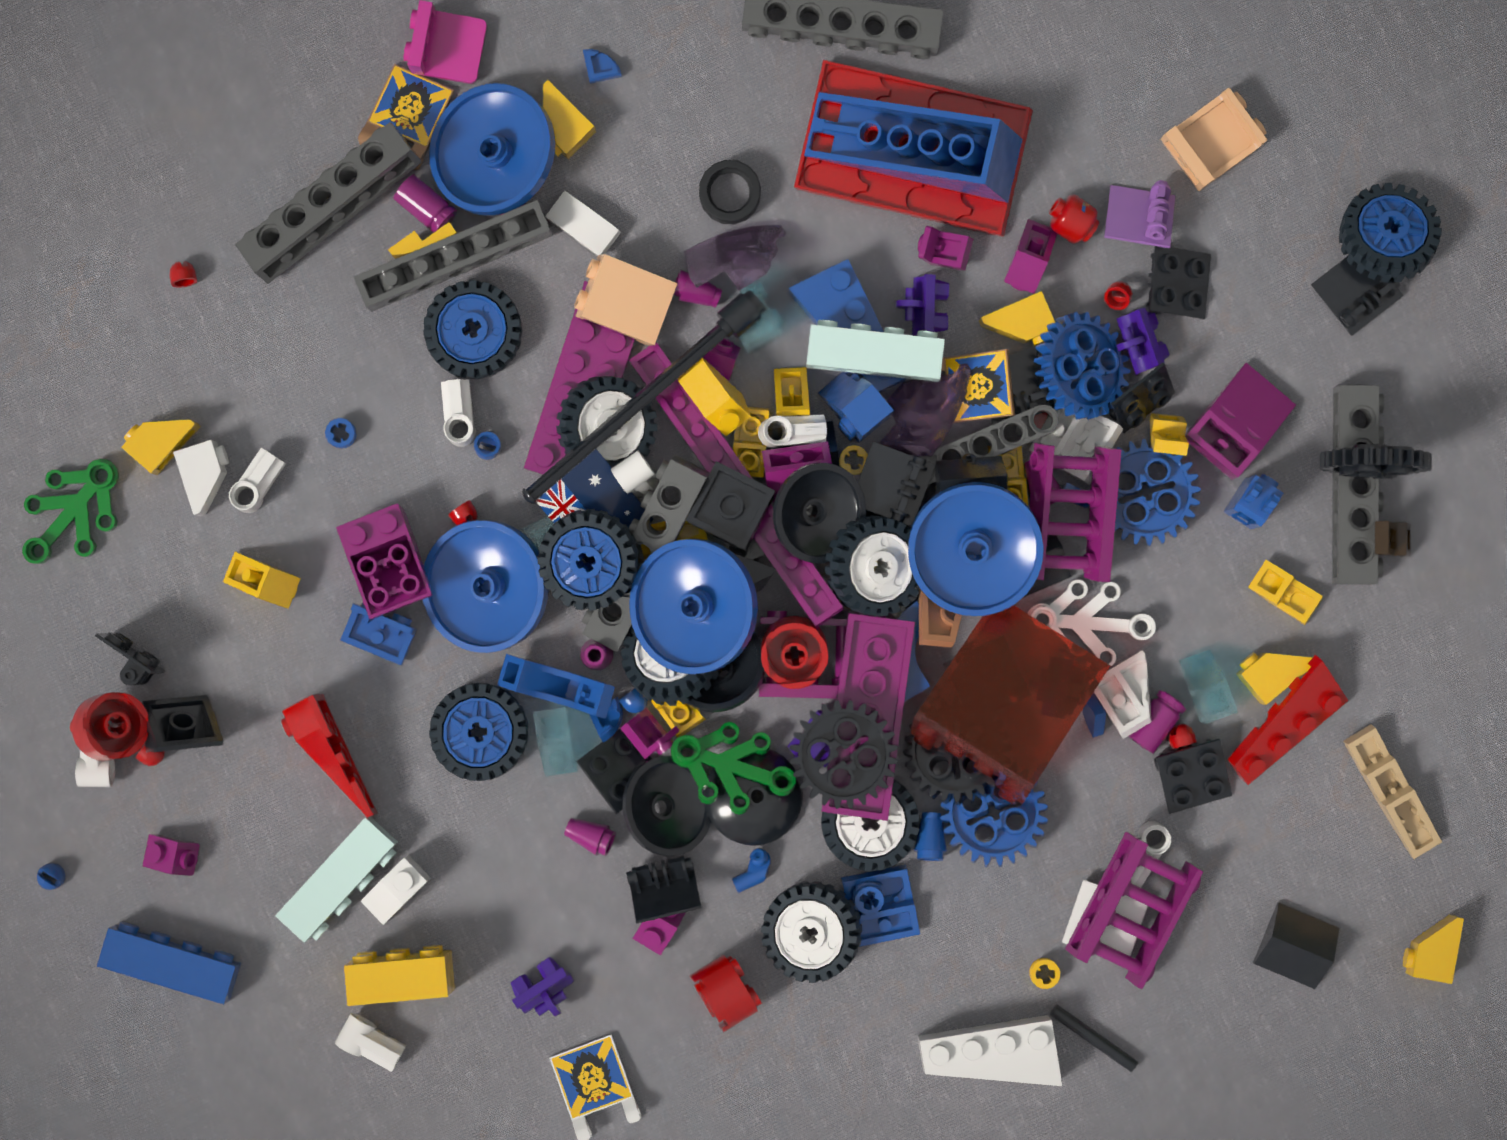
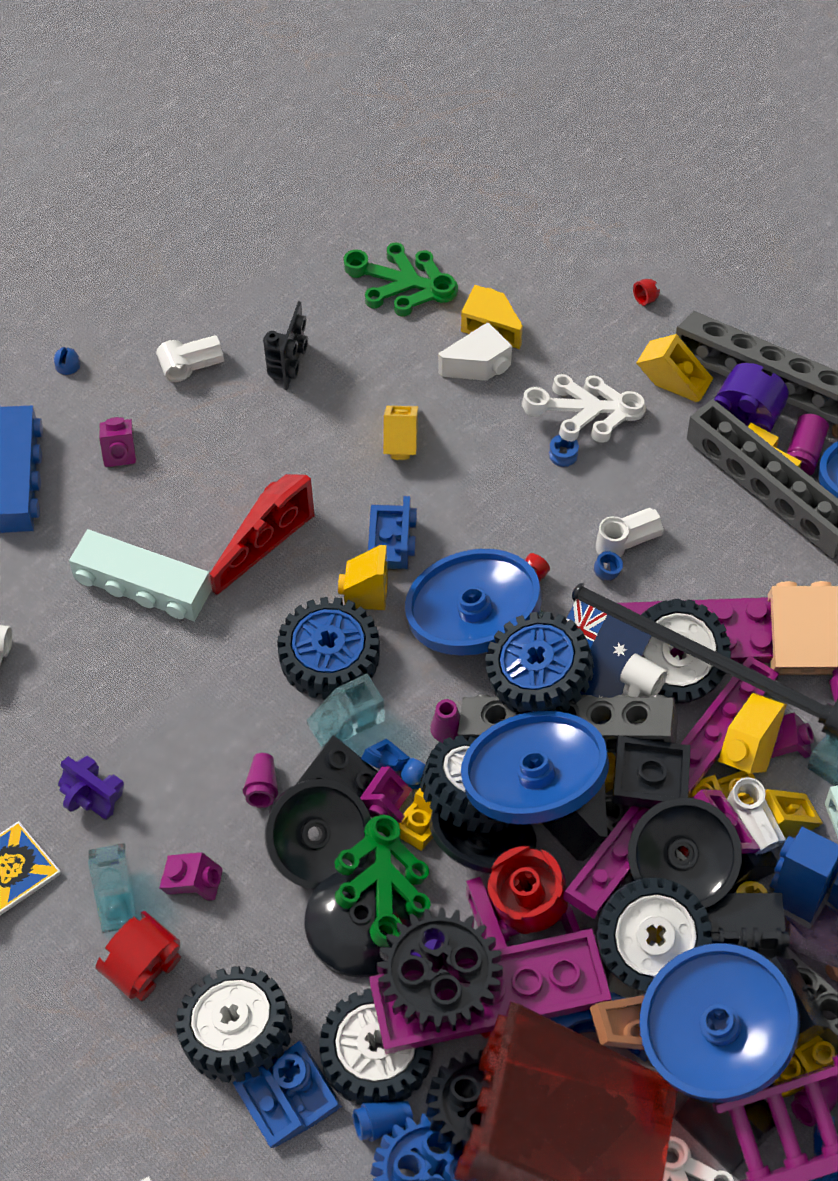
camera: 70 degrees right, 30 degrees down
(128, 727) = (202, 344): red brick -> none
(149, 758) = (207, 396): red hinge -> none
(181, 724) = (240, 404): black slope -> none
(259, 478) = (478, 395): white piece -> none
(290, 289) = (675, 368): none -> yellow slope
(301, 391) = (623, 406): none -> white plant
(363, 238) = (753, 395): none -> dark purple brick
(385, 560) = (465, 509): magenta slope -> none
(395, 889) = (150, 628): white slope -> none
(399, 976) = (62, 649): yellow brick -> none
(424, 676) = (366, 579): none -> yellow slope
(449, 320) = (711, 519): wheel -> none
(556, 685) = (401, 692): blue arch -> none
(646, 994) = (112, 886): none -> clear light blue slope
(664, 890) = (232, 859): black hinge -> none
(756, 872) = (280, 954): blue arm -> none

